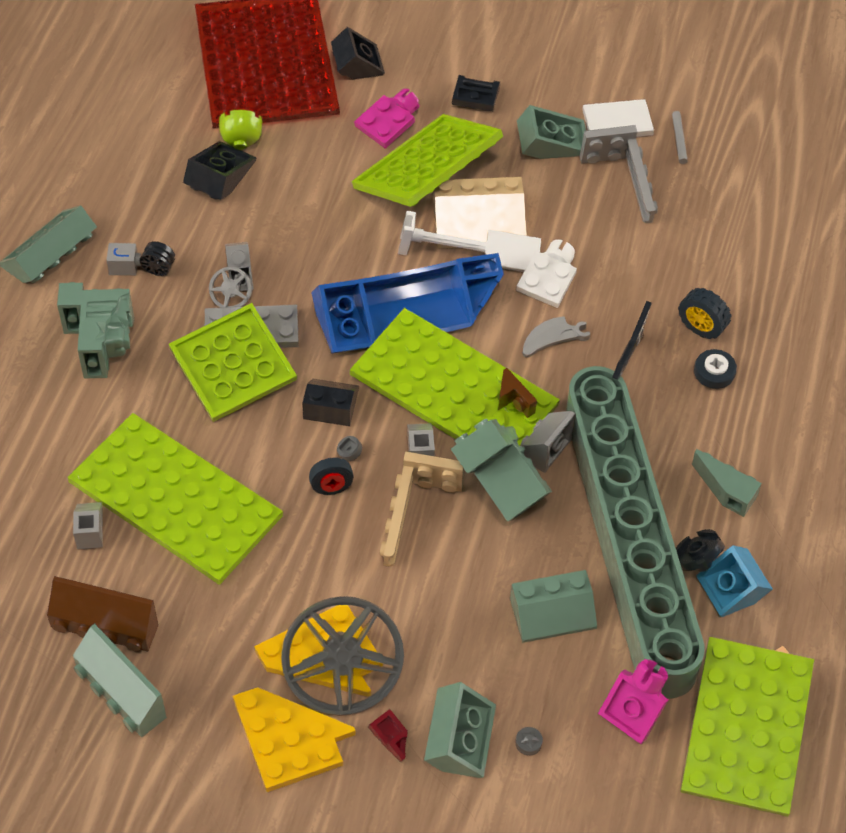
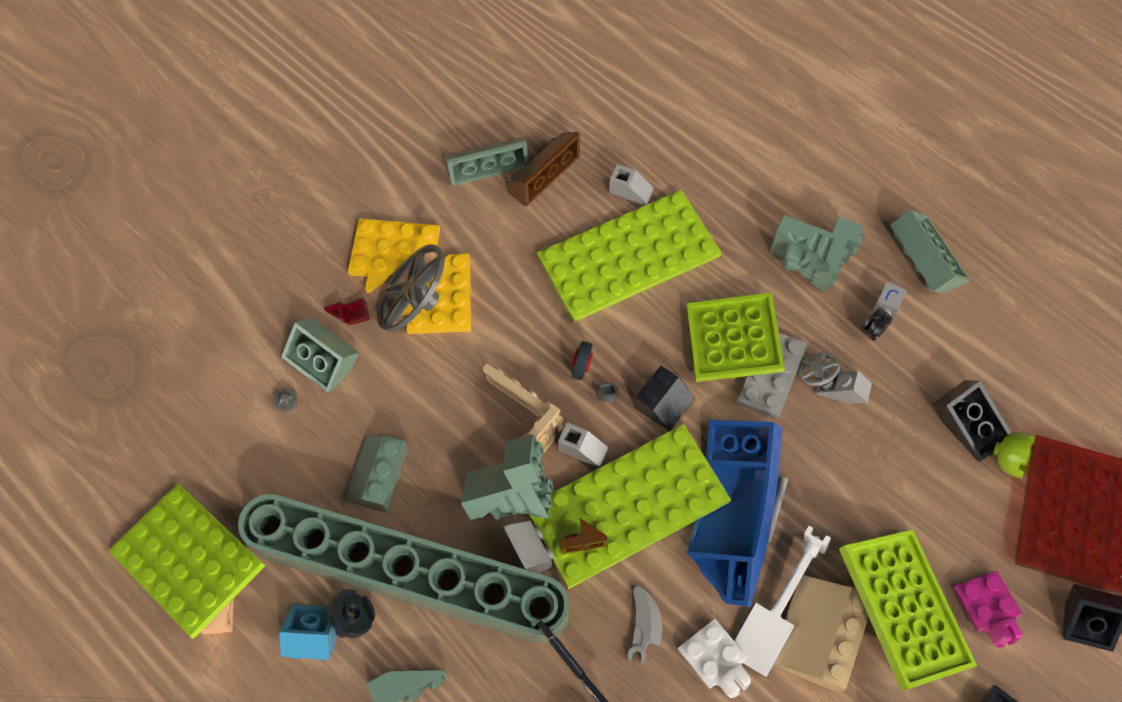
camera: 120 degrees right, 10 degrees up
(636, 700) = (254, 482): dark pink plate -> none

